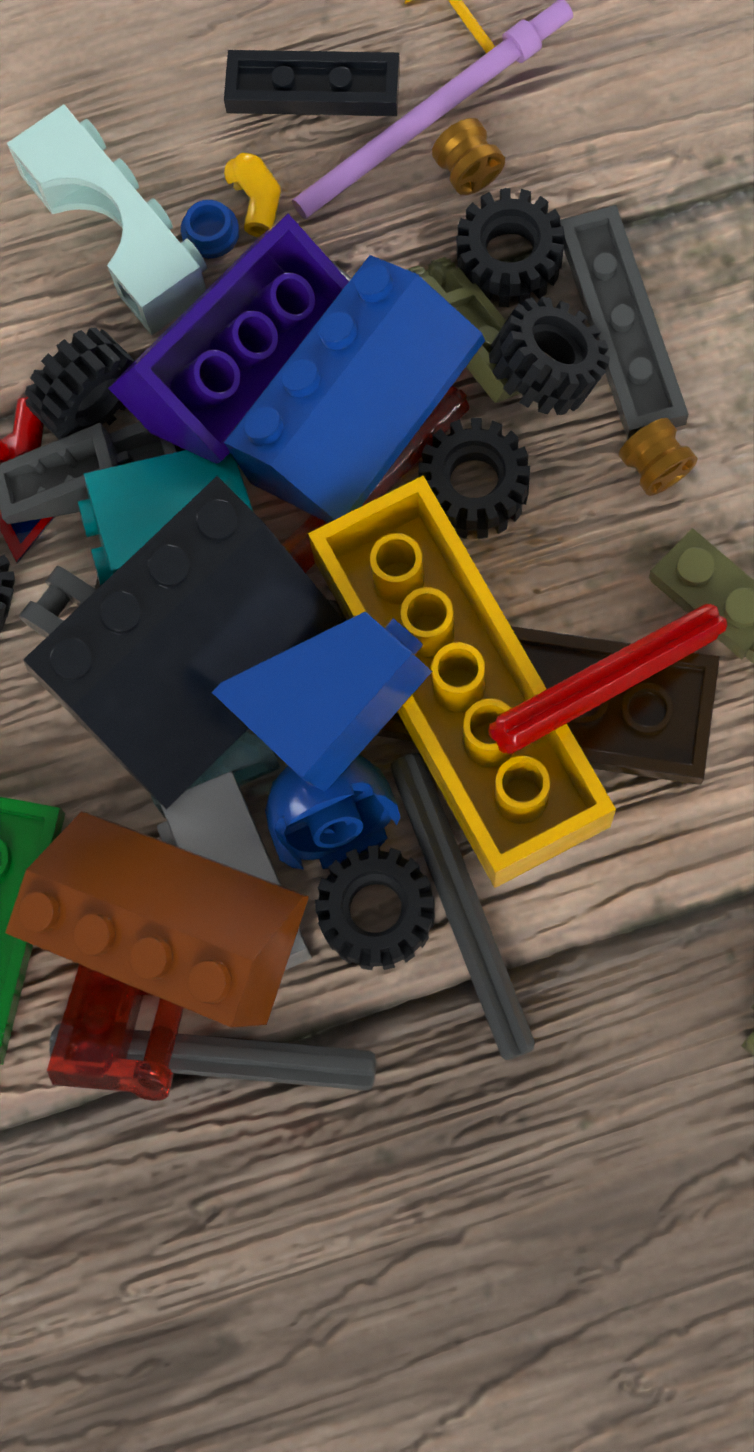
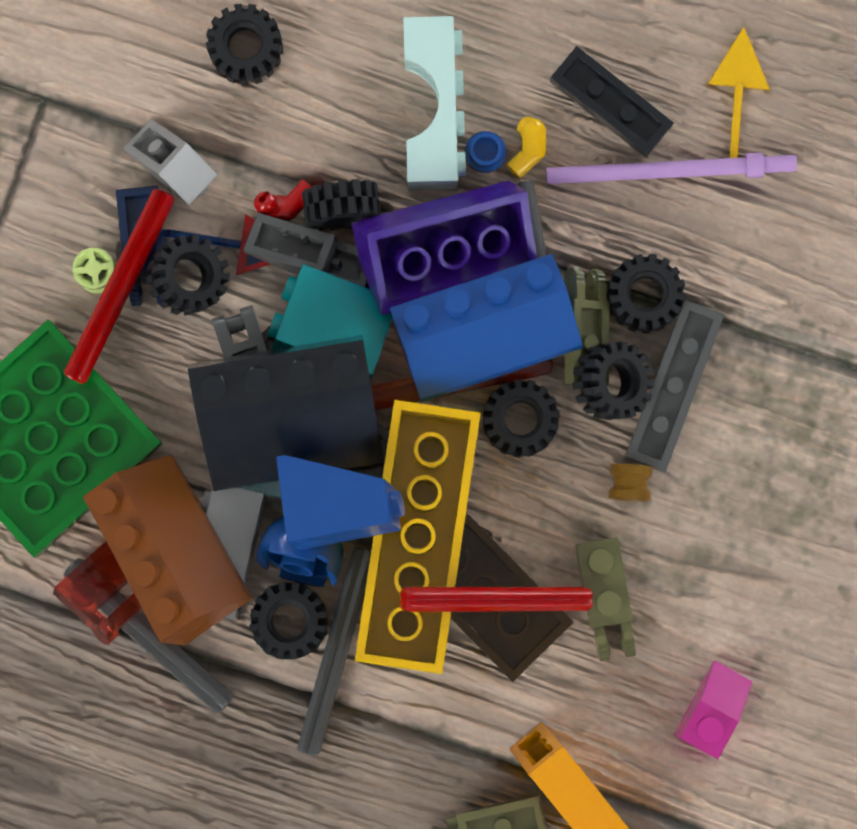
camera: 25 degrees right, 10 degrees up
(468, 156) = (664, 219): pearl gold wheel -> none

